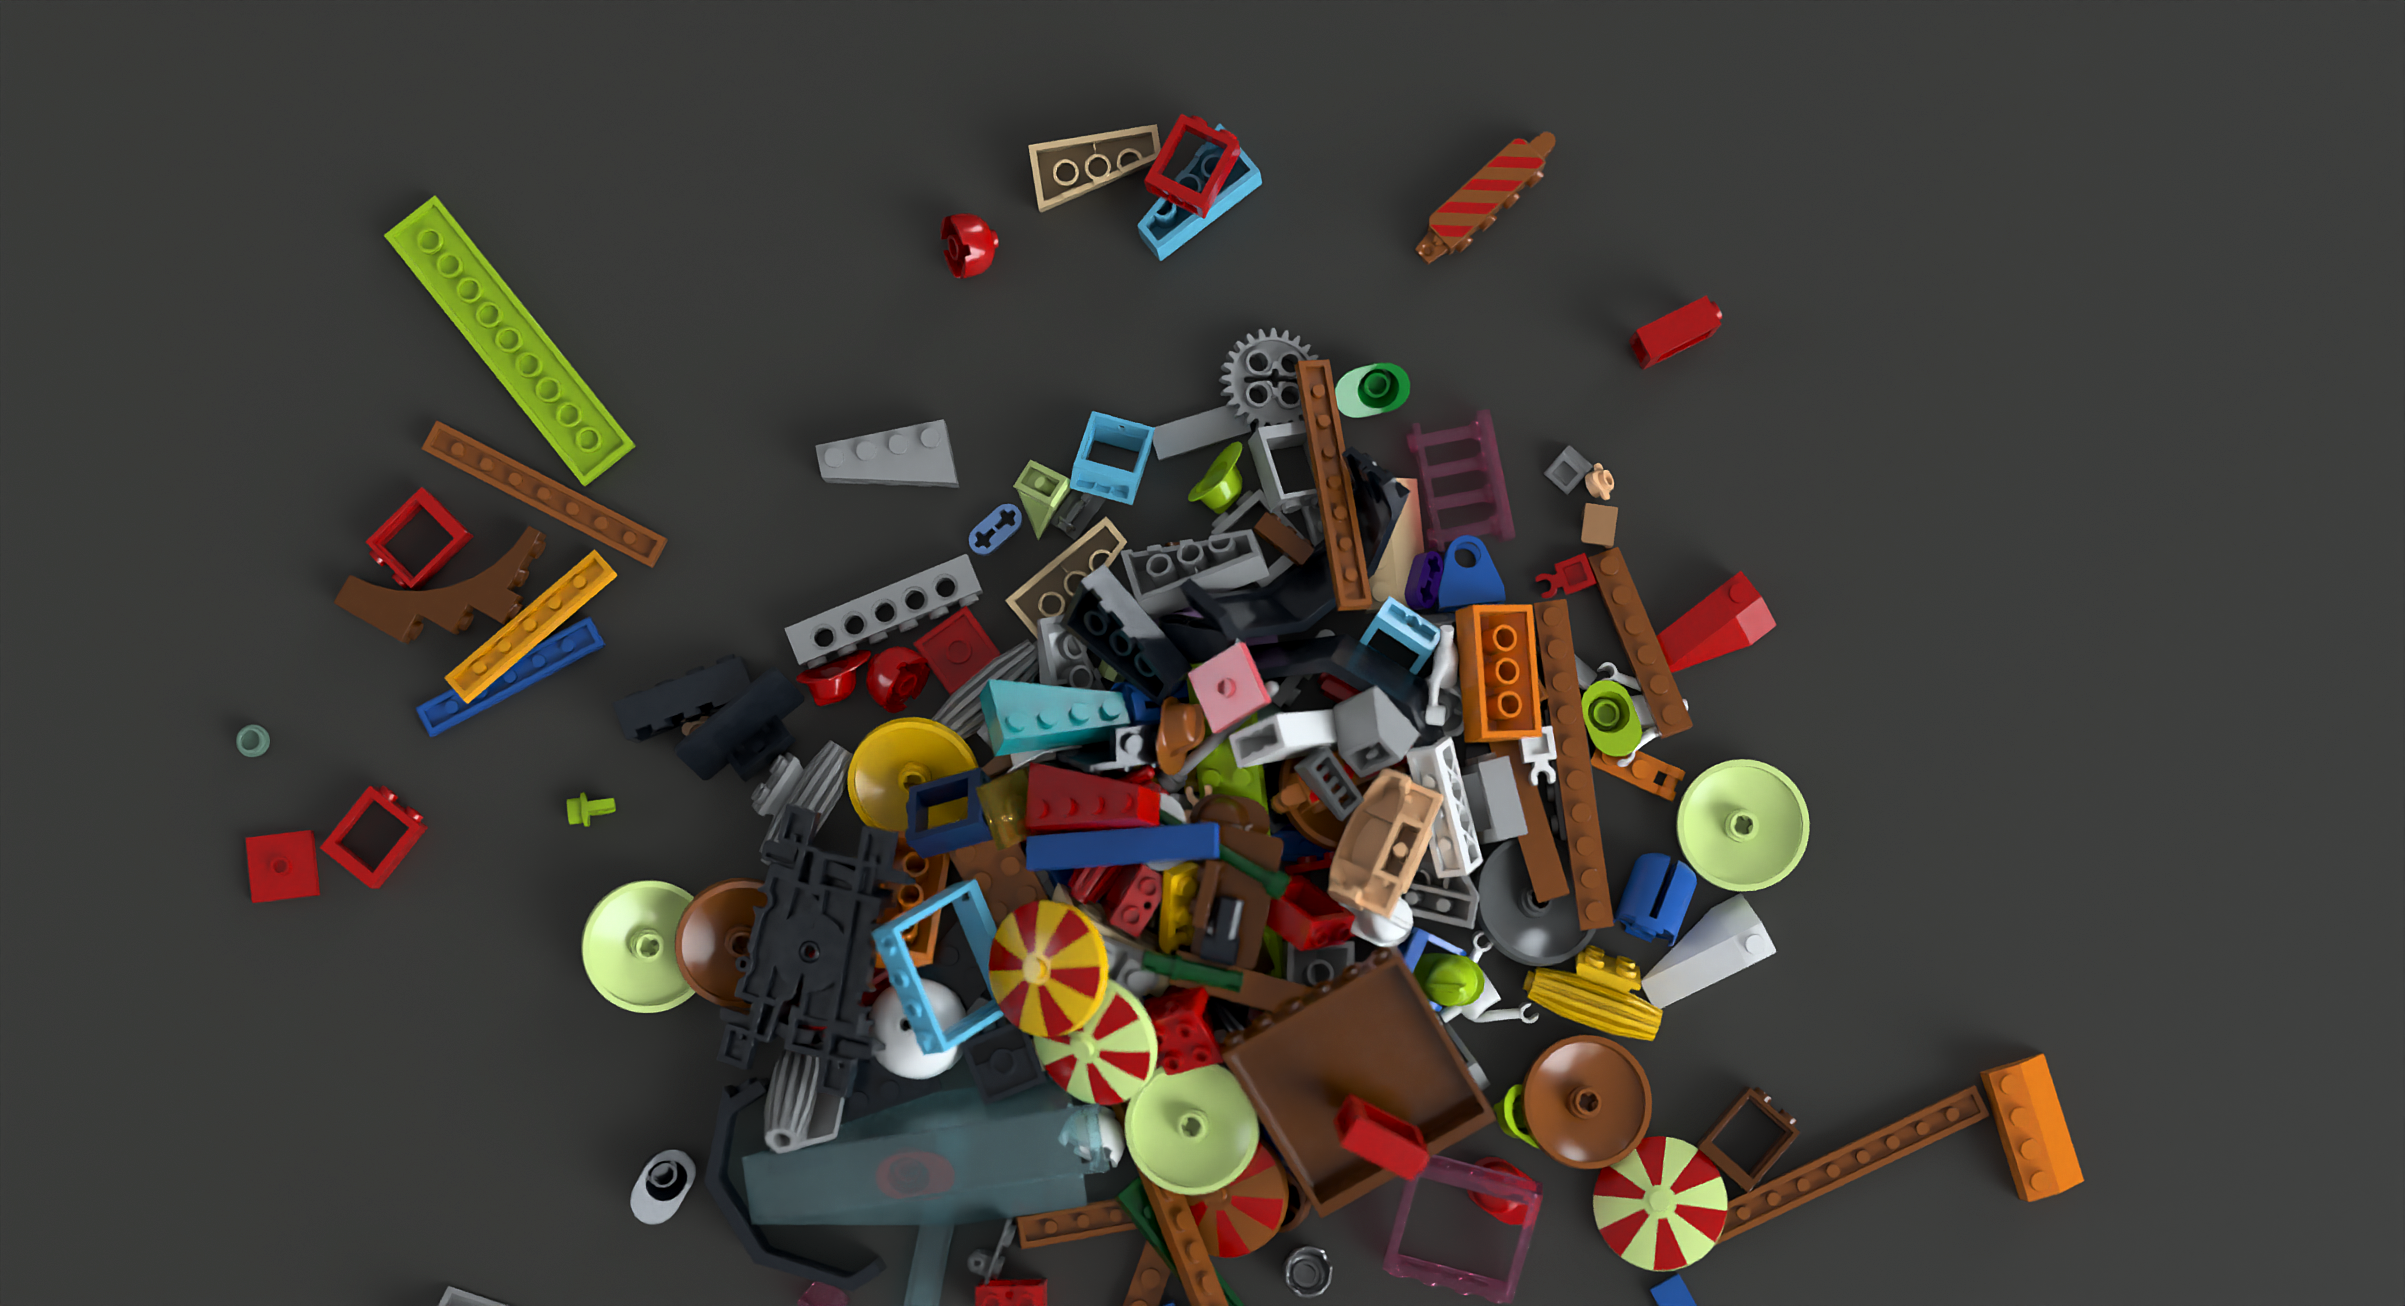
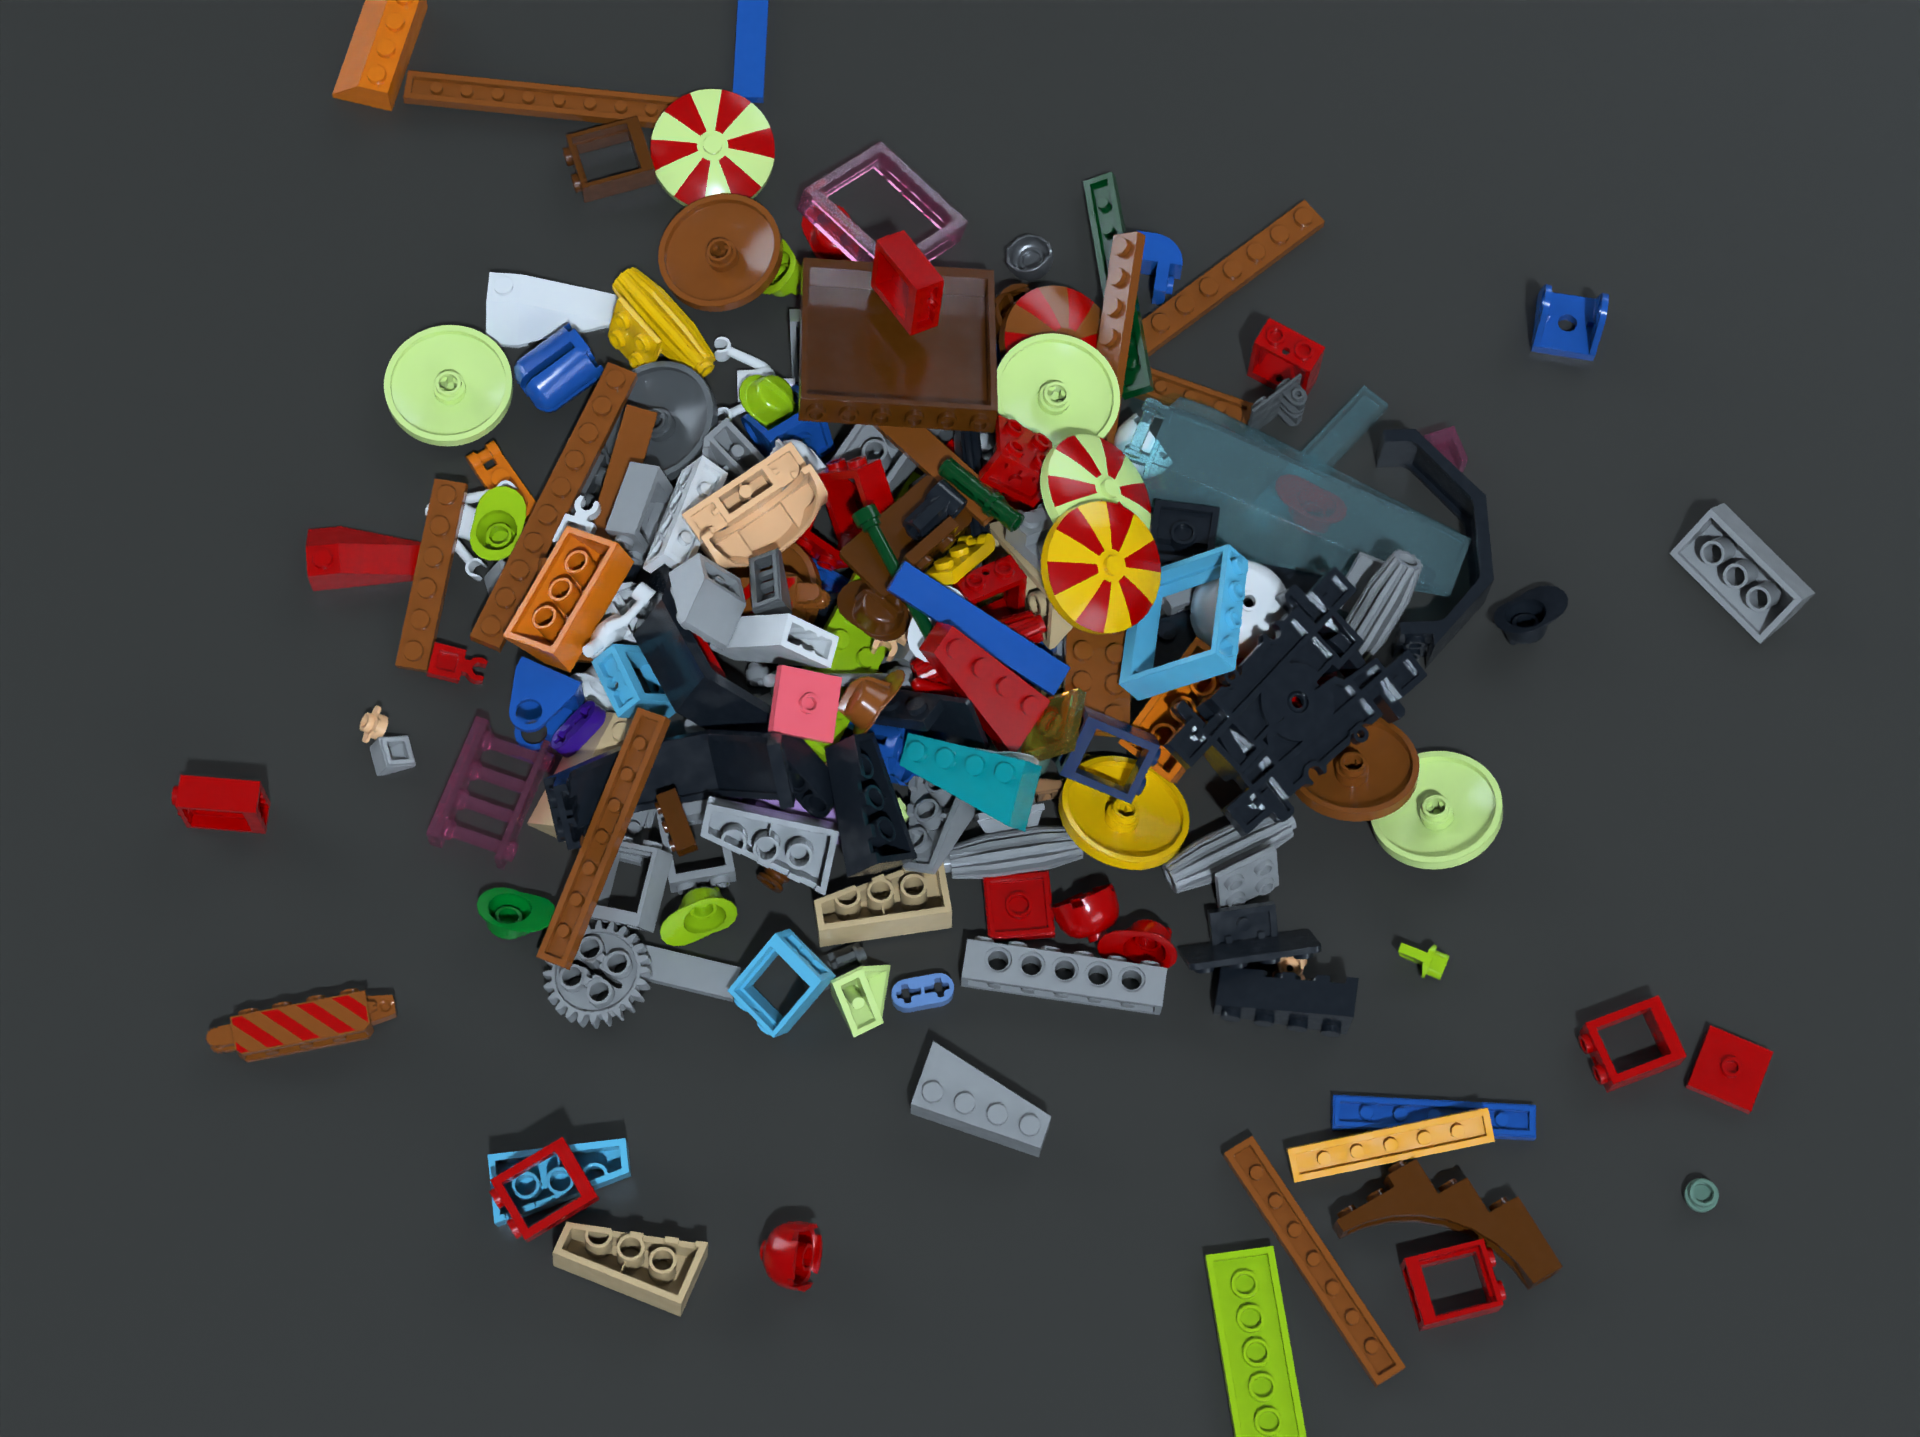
camera: 155 degrees left, 15 degrees down
(1599, 524) = (398, 688): medium nougat panel -> none

